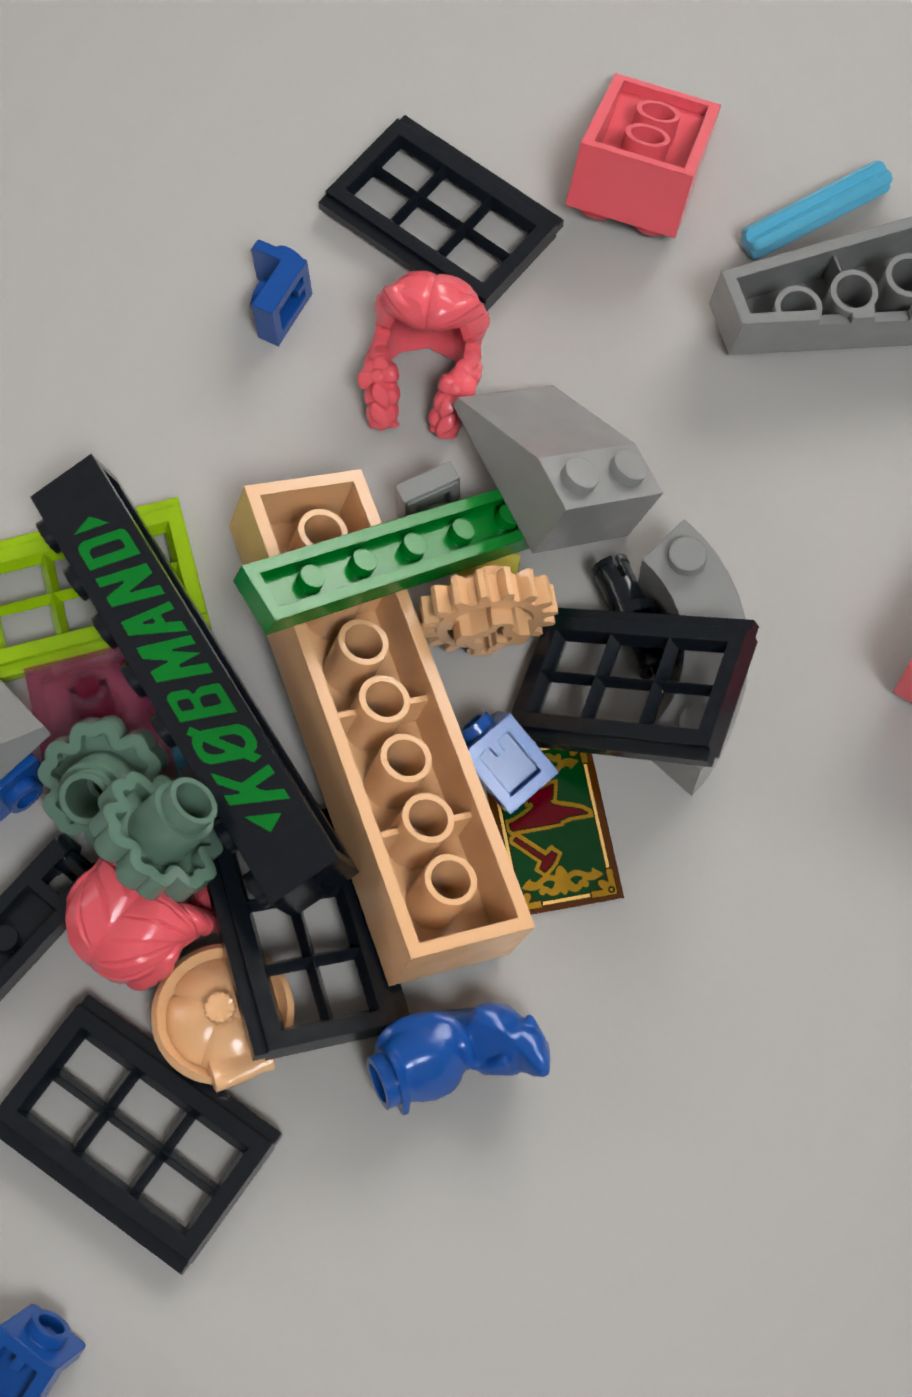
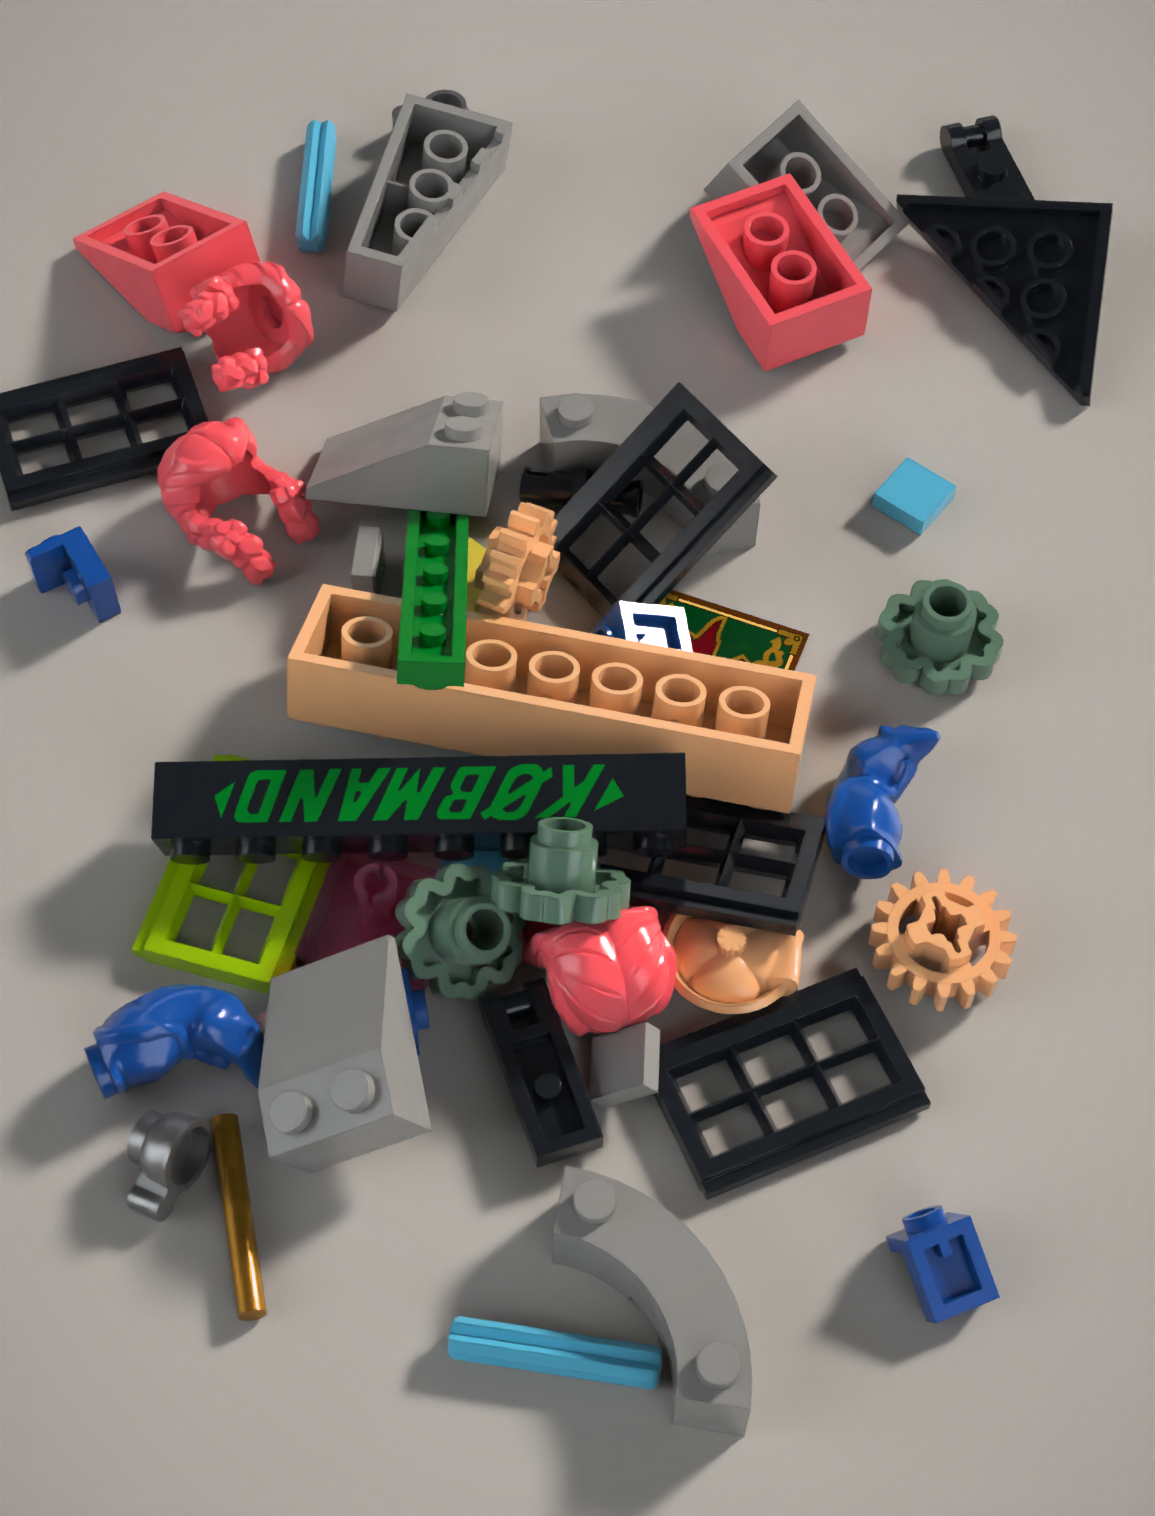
camera: 60 degrees left, 10 degrees down
(63, 990) = (625, 1064): none -> light grey tile
(326, 1174) = (941, 961): none -> light nougat gear
(609, 260) = (253, 322): none -> coral hair
(687, 1048) = (939, 636): none -> sand green plant
(843, 905) = (913, 496): none -> medium azure tile

